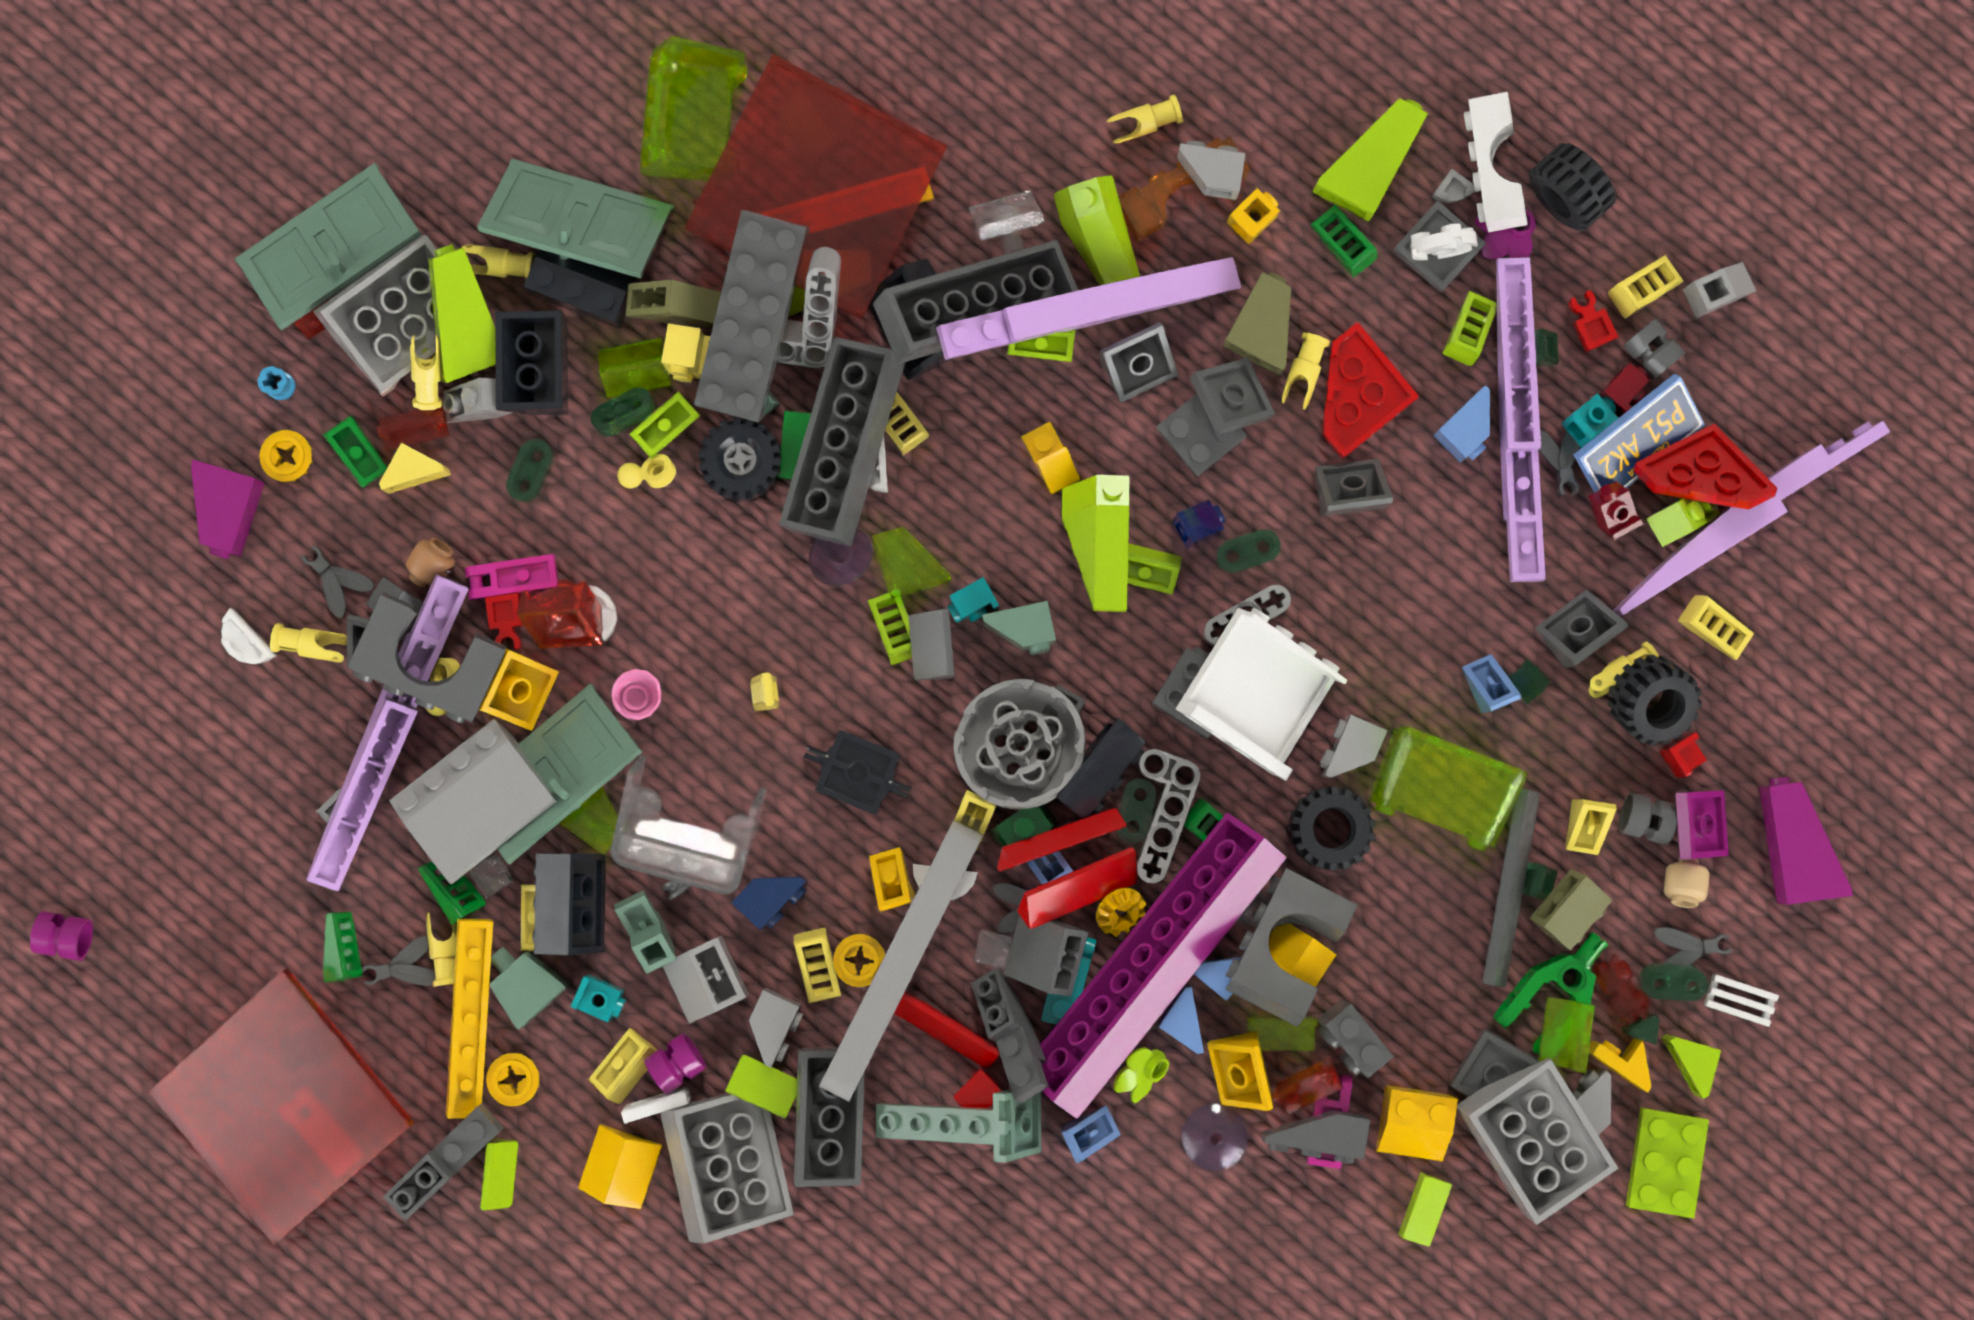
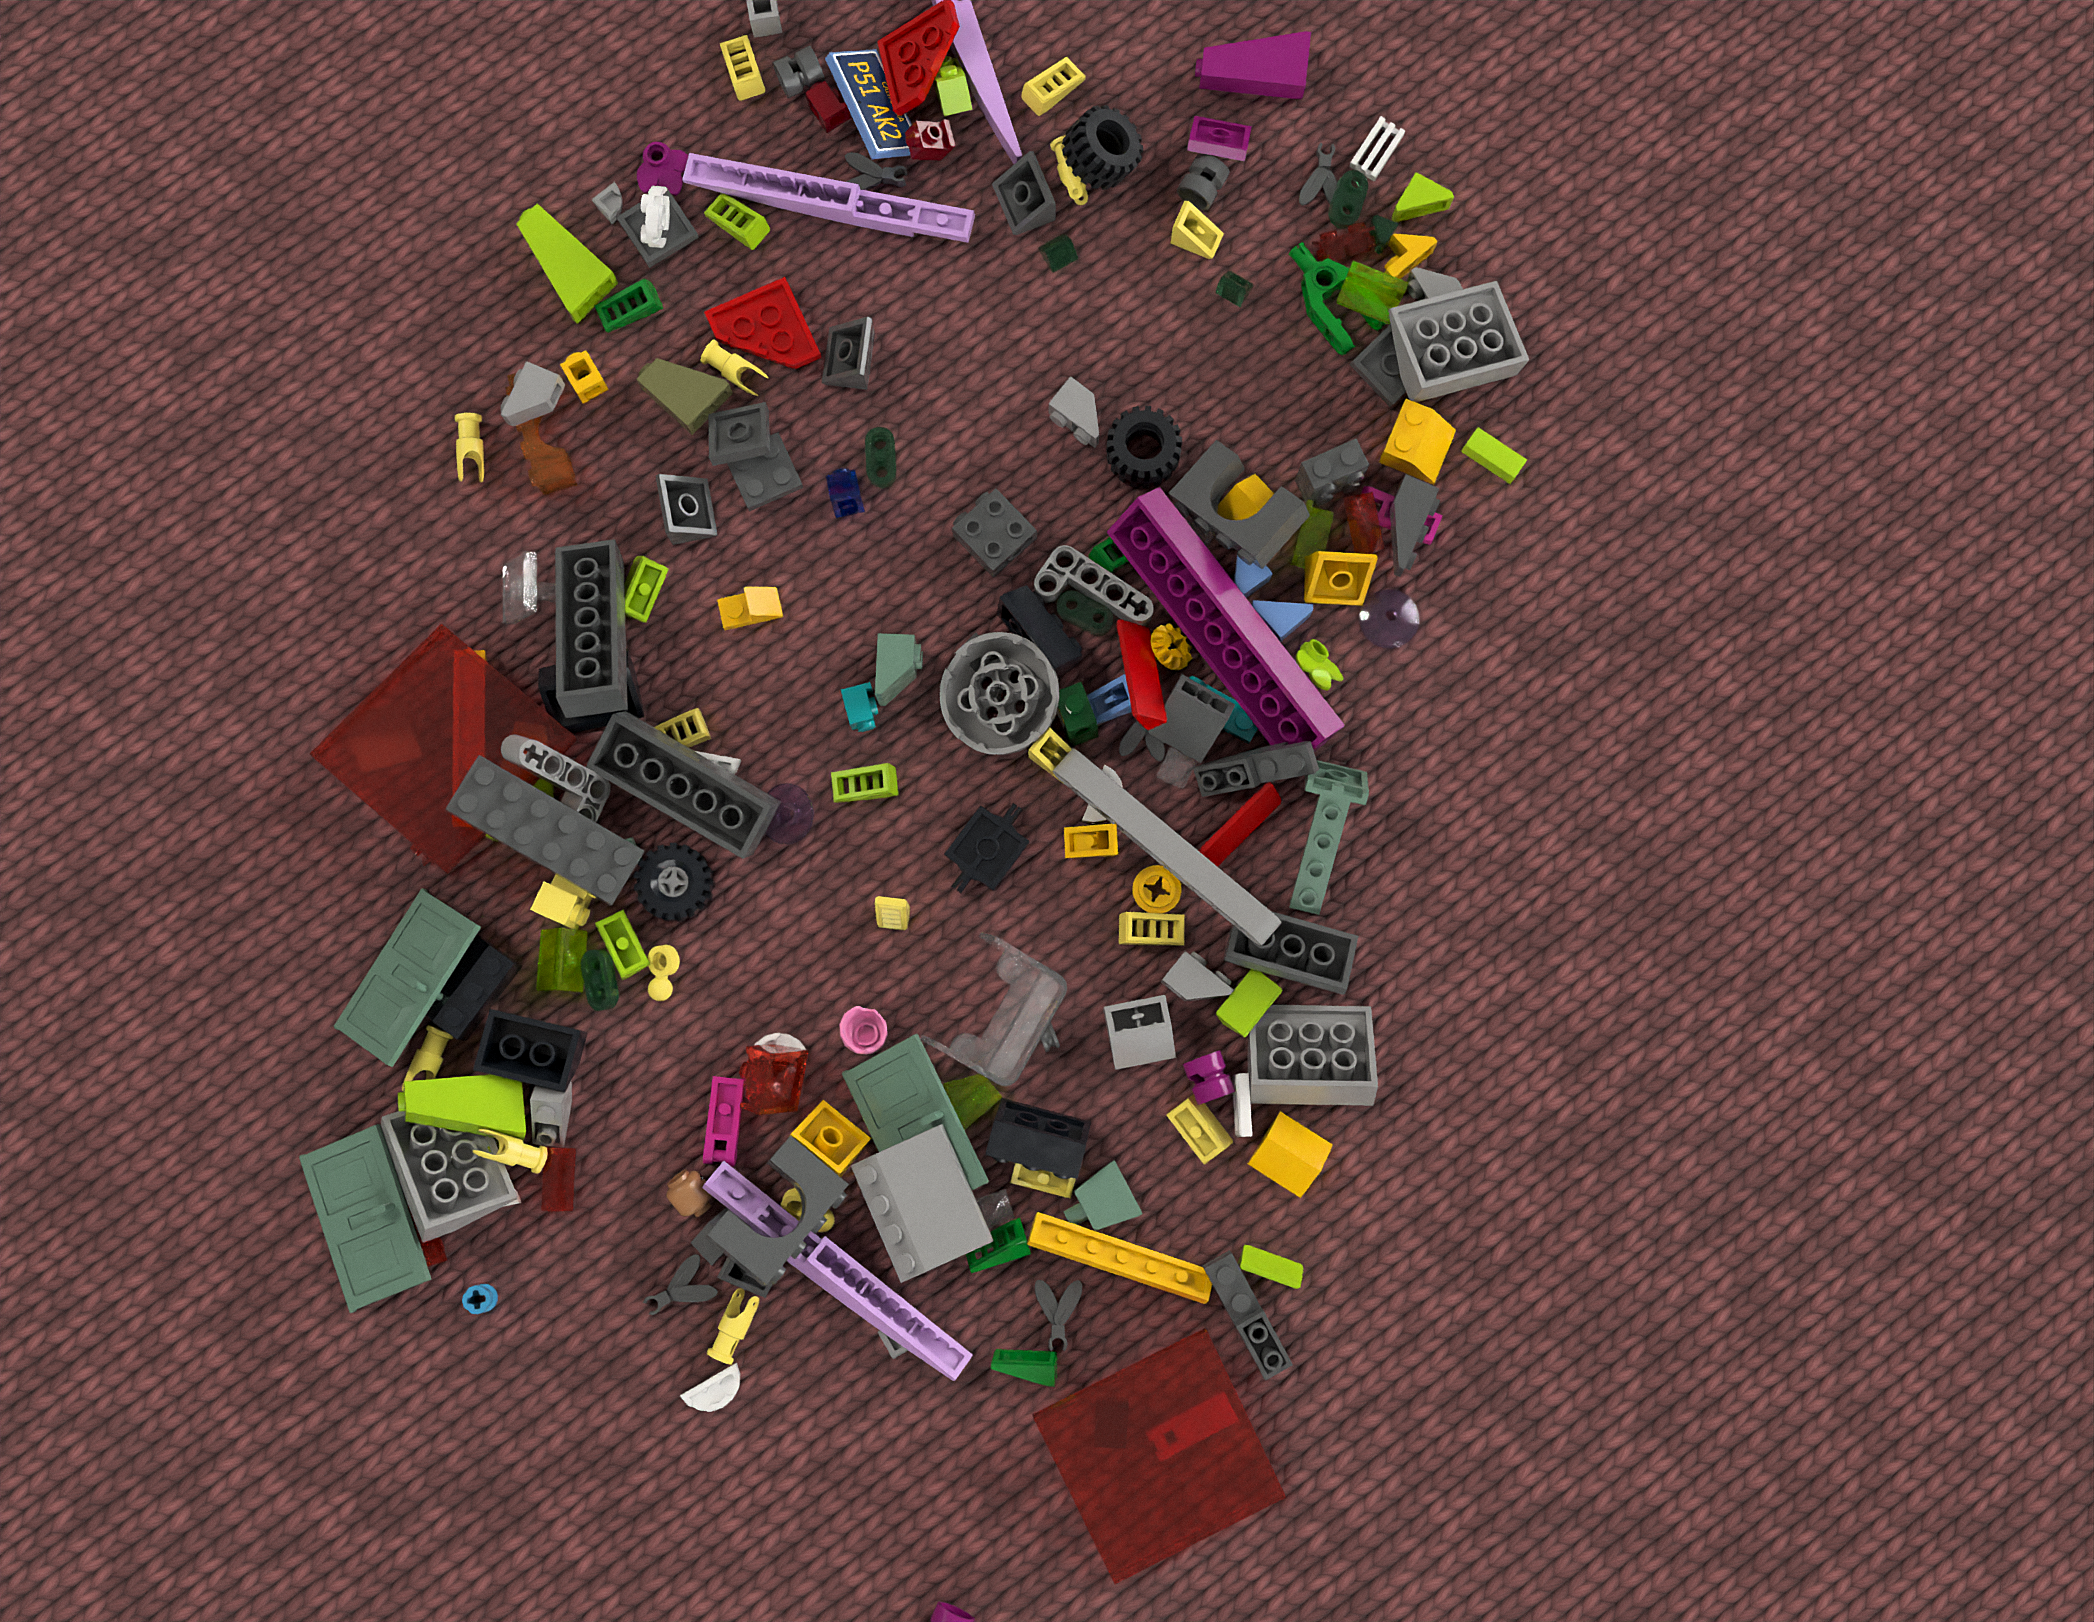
camera: 75 degrees left, 5 degrees down
(224, 507) = (582, 1377): magenta slope -> none
(271, 457) = (537, 1303): yellow gear -> none
(356, 451) = (565, 1239): green slope -> none
(410, 469) = (597, 1189): light yellow slope -> none
(442, 955) = (1056, 1270): light yellow piece -> none
(503, 617) = (757, 1135): red plate -> none
(506, 1093) = (1198, 1244): yellow gear -> none
(527, 470) = (630, 1080): clear green plate -> none
(585, 996) = (1124, 1142): teal brick -> none
(646, 931) = (1082, 1074): sand green brick -> none
(672, 303) = (512, 903): olive slope -> none
(688, 107) = (336, 850): clear neon green windscreen -> none
(767, 896) = (1079, 958): dark blue slope -> none
(792, 438) = (667, 829): green slope -> none
(906, 563) = (810, 758): clear neon green wing -> none
(931, 645) = (890, 748): slope -> none
(978, 1090) = (1299, 810): red panel -> none
(1060, 838) = (1093, 678): red slope -> none
(1087, 307) = (624, 534): lavender slope -> none
(1090, 1133) = (1361, 725): medium blue slope -> none
(1097, 228) = (560, 512): lime wedge -> none
(1098, 528) = (824, 577): lime wedge -> none
(1152, 568) = (871, 550): lime slope -> none
(1259, 690) = (1006, 475): white panel -> none
(1263, 596) = (940, 451): light grey beam -> none
(1446, 786) = (1130, 339): clear neon green windscreen -> none
(1468, 427) = (823, 243): medium blue slope -> none
(1489, 684) = (1053, 282): medium blue slope -> none
(1492, 124) = (631, 161): white arch -> none
(1511, 888) = (1233, 310): dark grey tile -> none
(1546, 348) = (772, 160): clear green slope -> none
(1571, 909) = (1265, 265): olive brick -> none
(1572, 186) = (637, 99): black tyre -> none
(1582, 424) = (845, 140): teal brick -> none
(1593, 327) = (765, 117): red plate -> none
(1667, 1162) = (1501, 244): lime plate -> none
(1683, 755) = (1156, 140): red panel -> none
(1686, 883) = (1266, 165): tan head -> none

